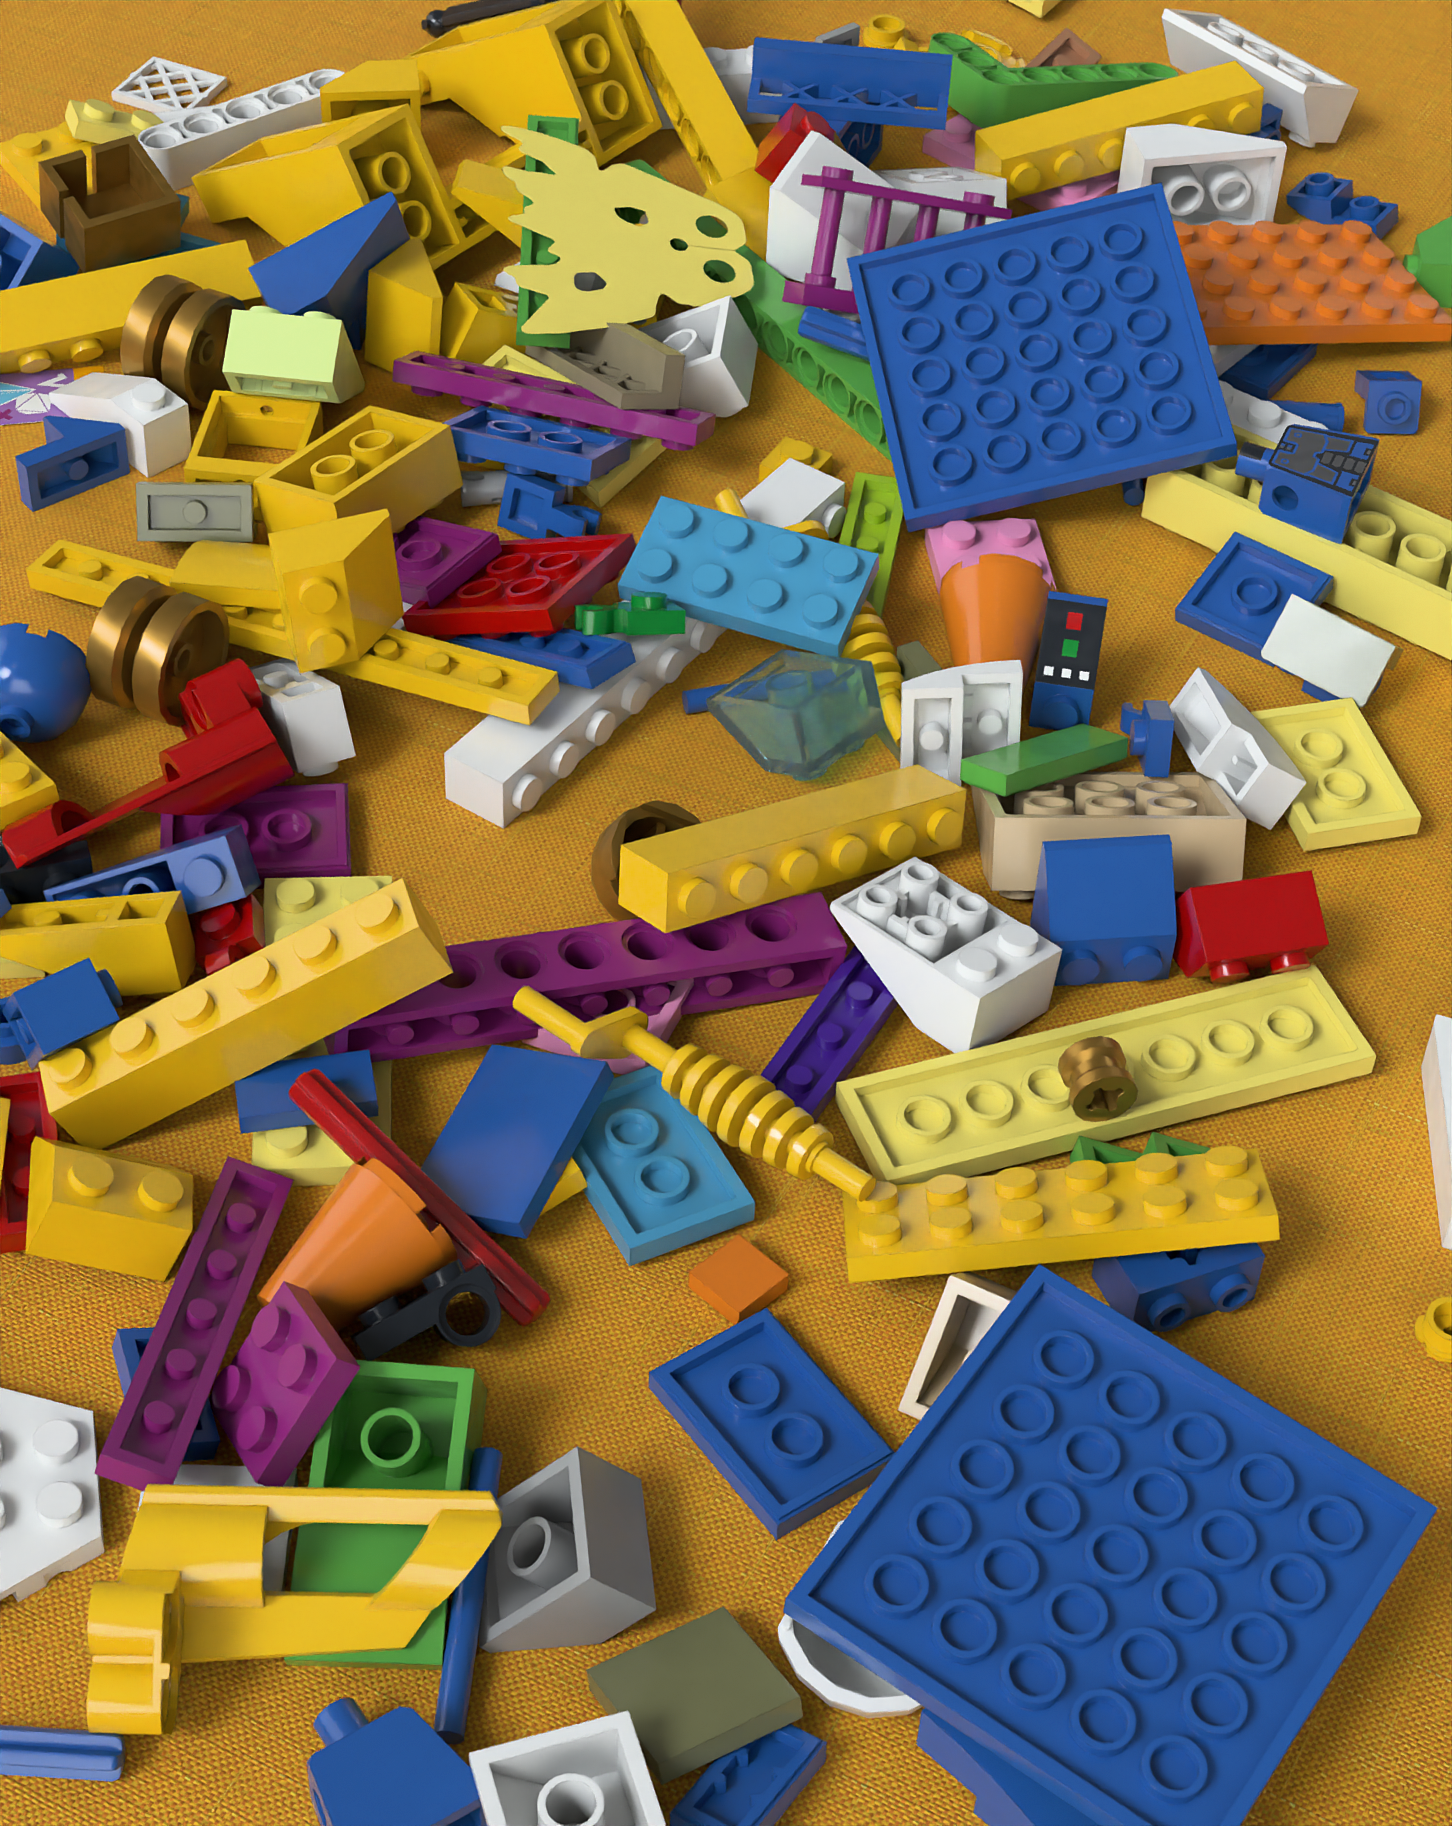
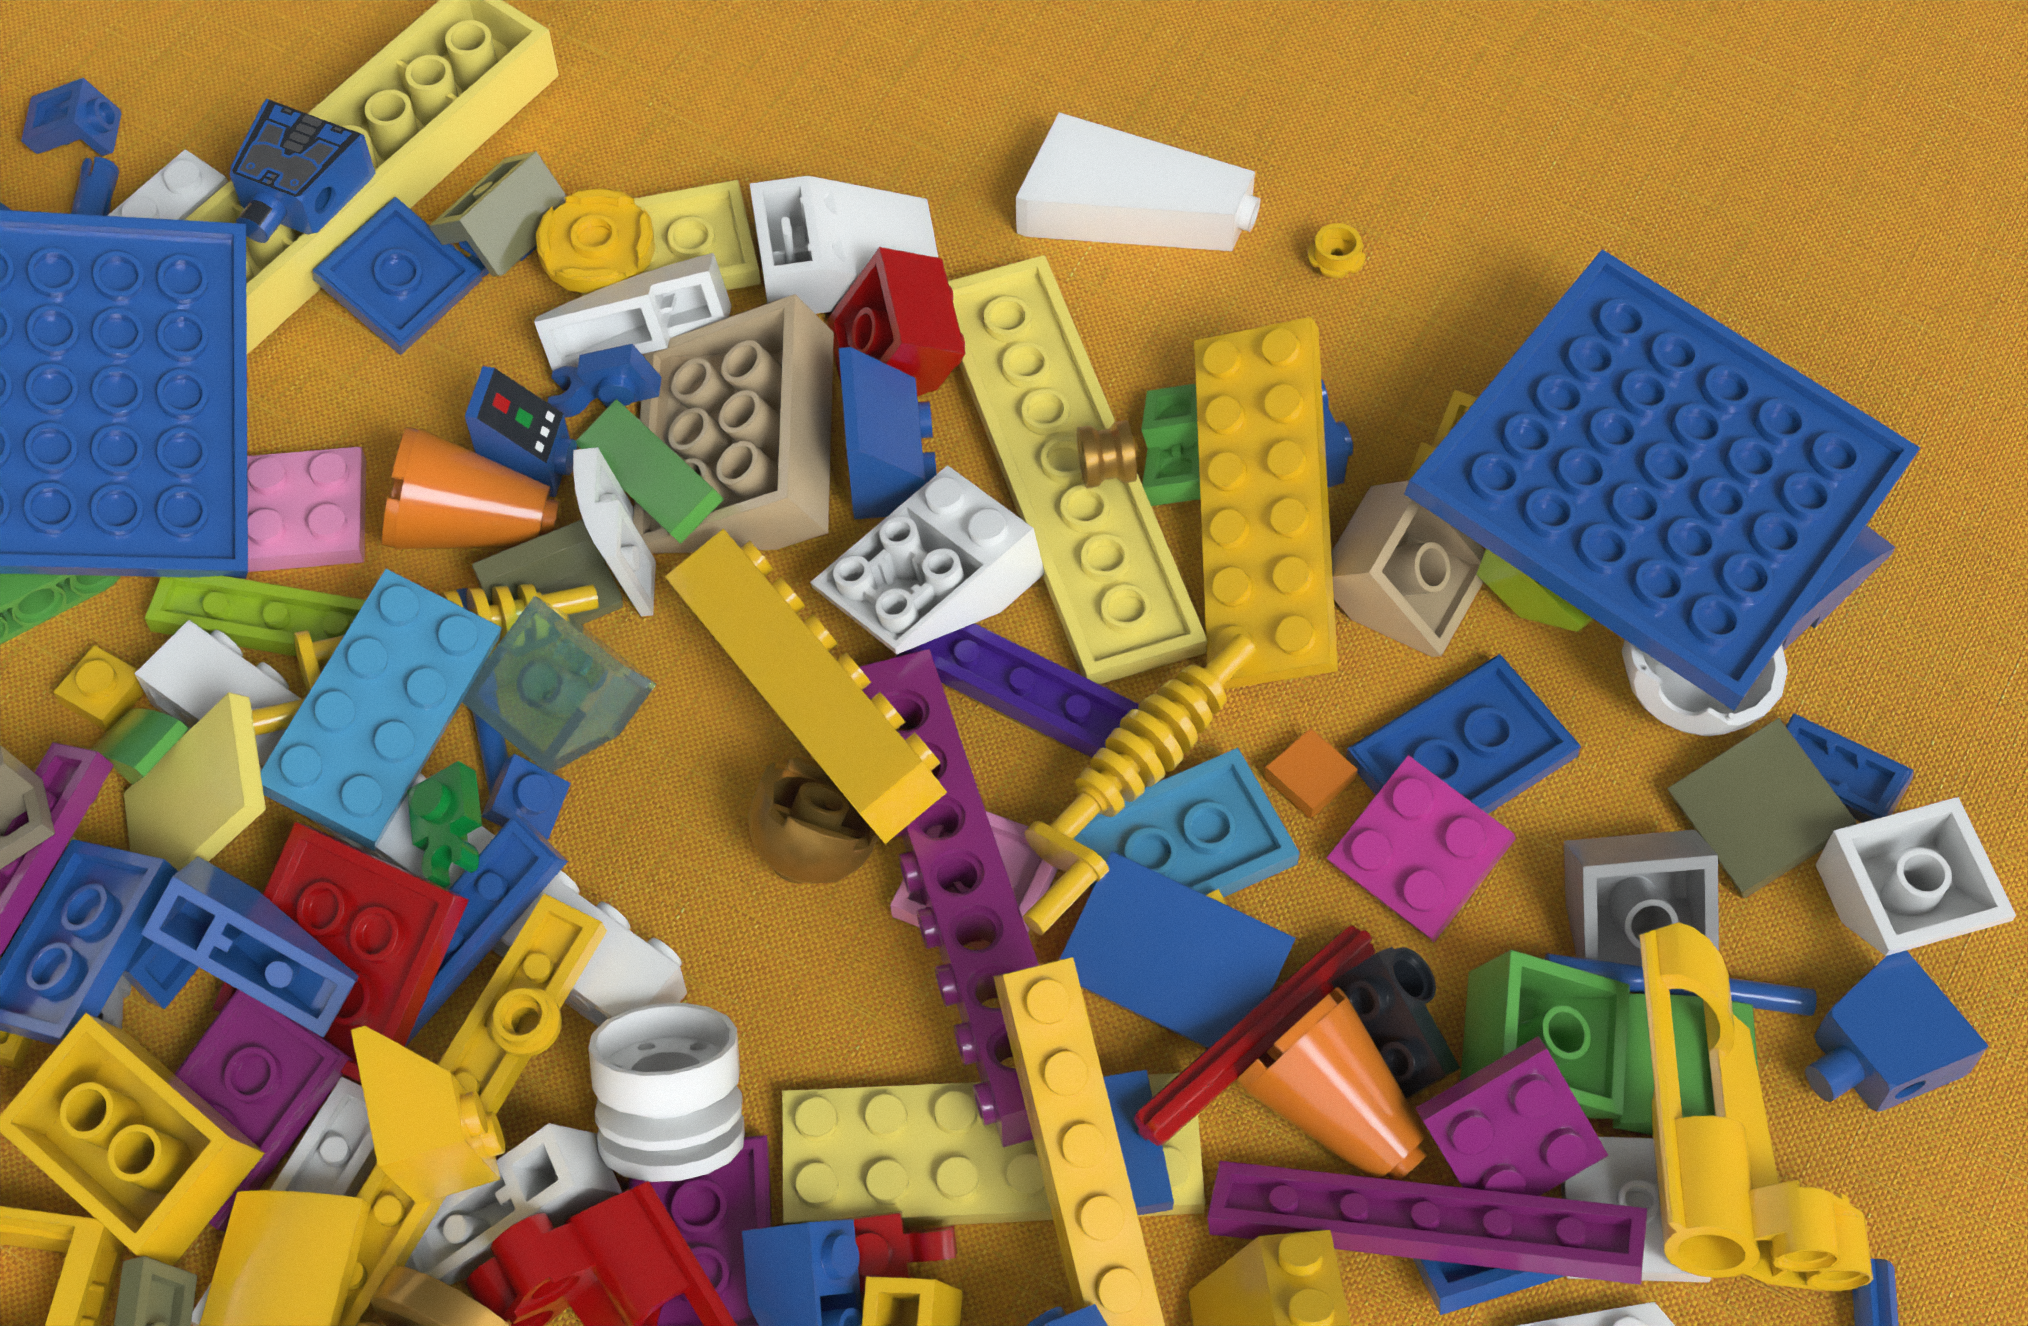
camera: 85 degrees left, 15 degrees up
(372, 767) = (667, 1091): none -> white wheel
(430, 659) = (515, 1006): none -> yellow plate
(532, 505) = (250, 945): none -> blue slope
(637, 1357) = (1421, 848): none -> dark pink plate
(641, 491) = (199, 789): none -> light yellow tile
(683, 706) = (527, 792): none -> blue plate
(720, 468) = (139, 741): none -> bright green slope
(1314, 712) = (595, 240): none -> yellow tile
(1363, 885) = (825, 231): none -> white slope

